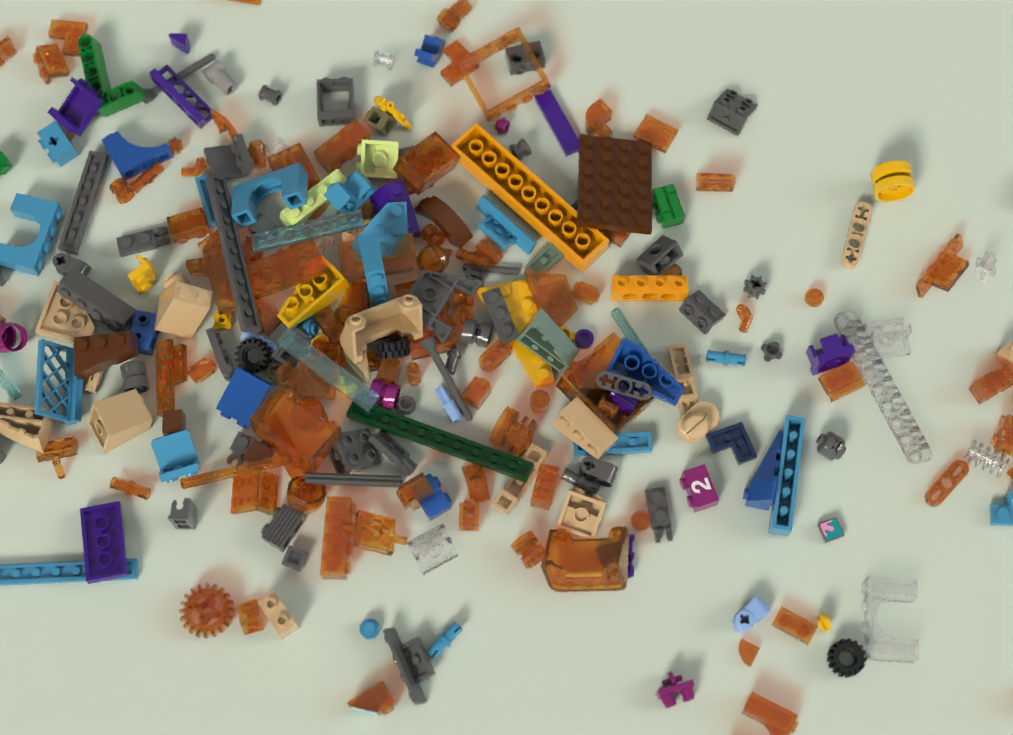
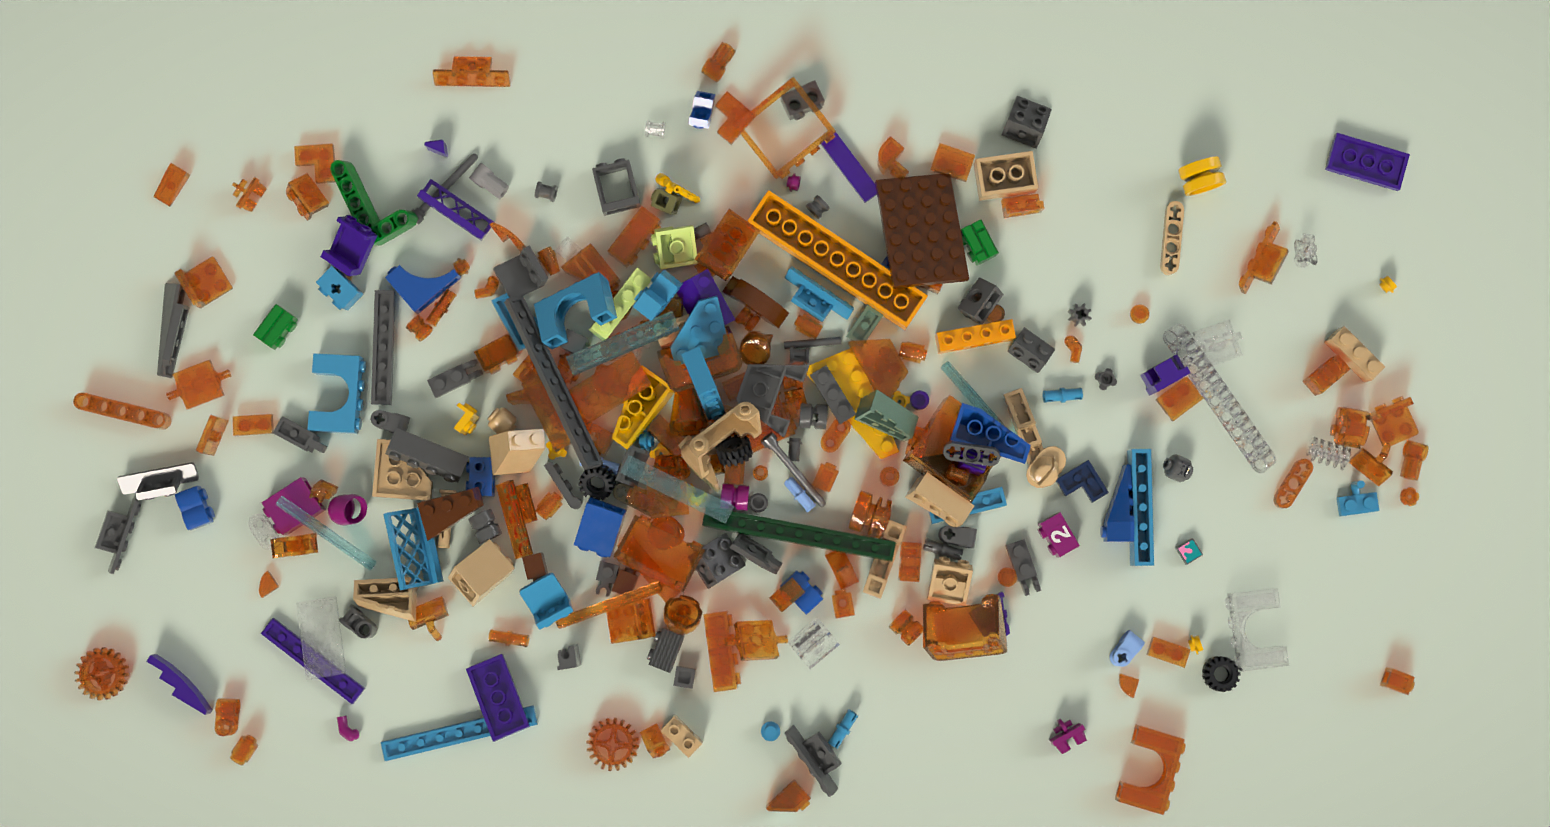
camera: 15 degrees left, 15 degrees up
(353, 479) = (724, 591): dark grey axle -> none
(474, 258) = (795, 337): clear orange pin -> none
(703, 151) = (1005, 175): none -> tan brick

